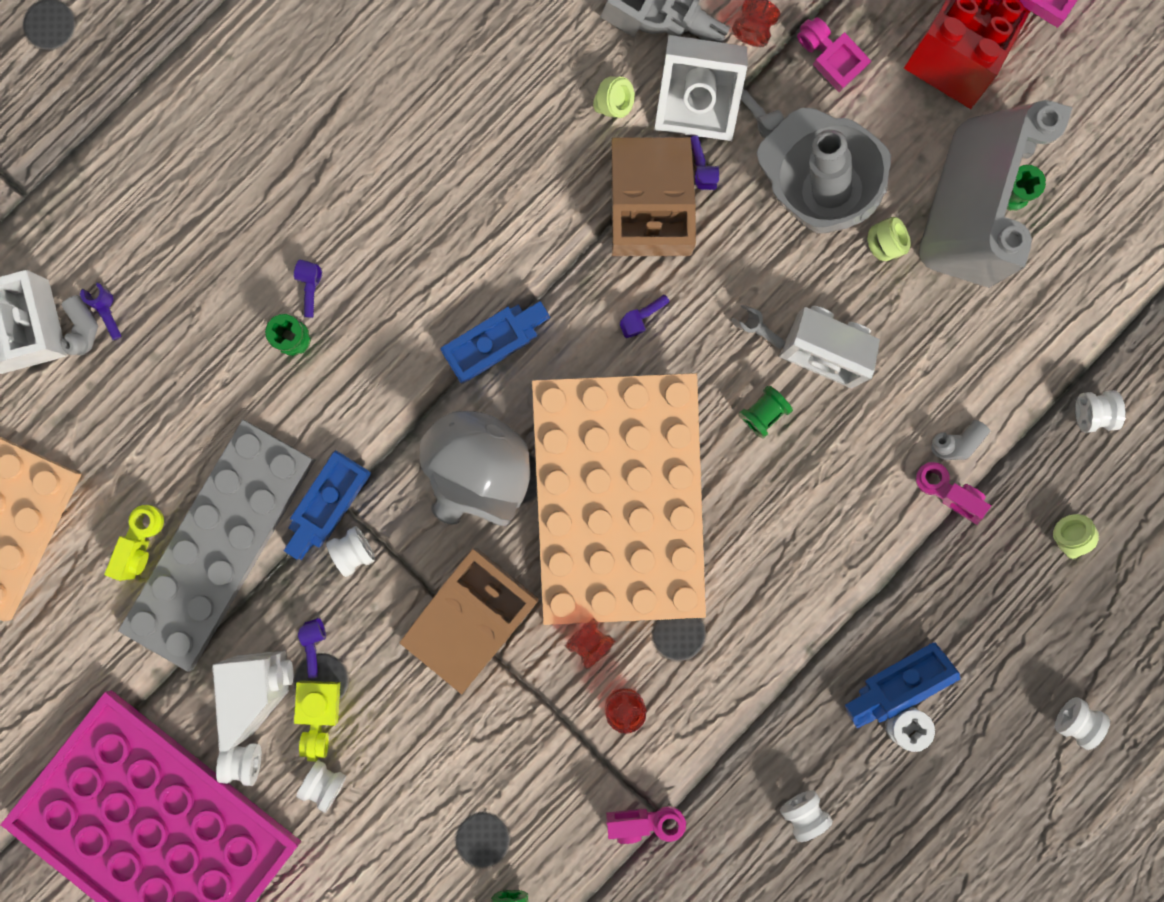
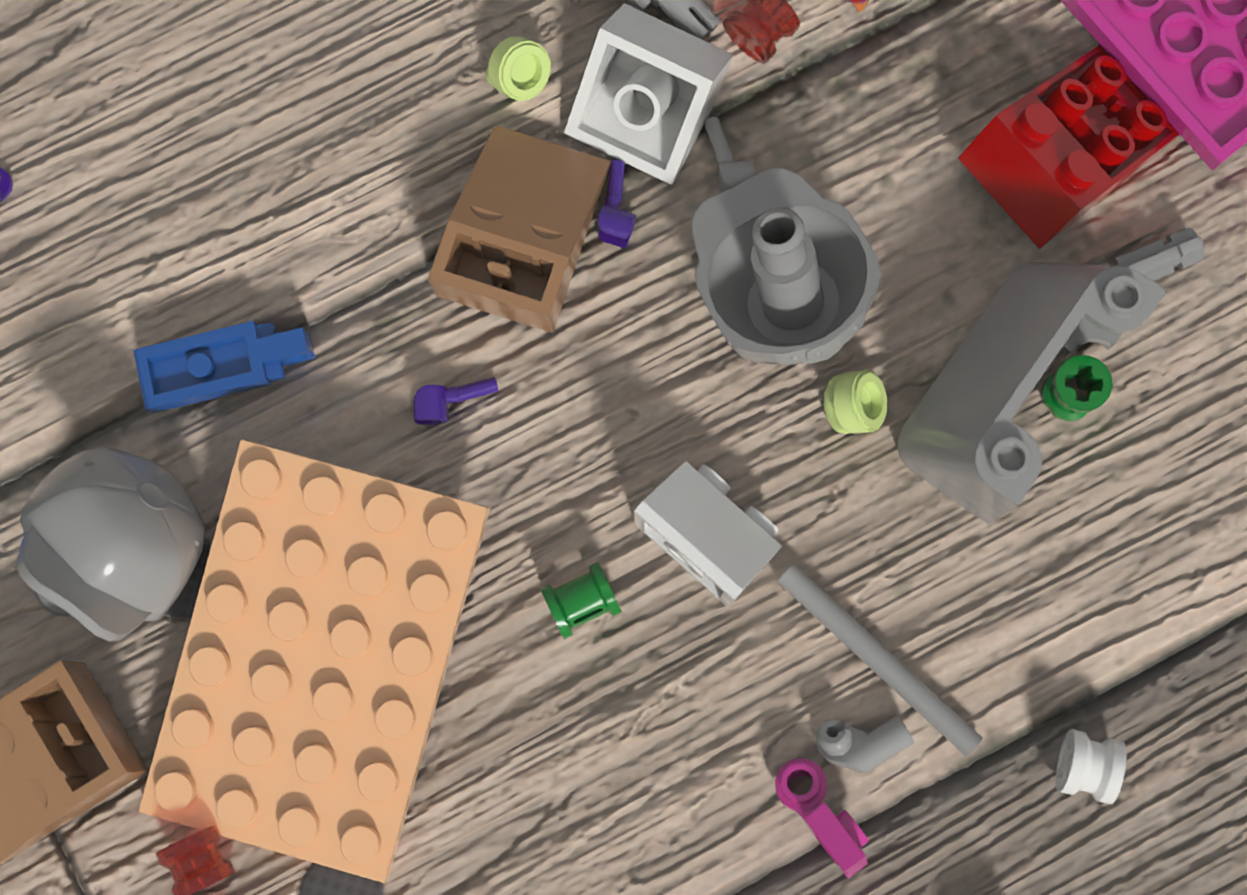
camera: 25 degrees right, 5 degrees down
(756, 324) = (612, 466): light grey hand -> none
(840, 59) = (868, 116): dark pink plate -> none
(953, 389) = (880, 660): none -> light grey bar
(1054, 83) = (1157, 259): none -> light grey axle

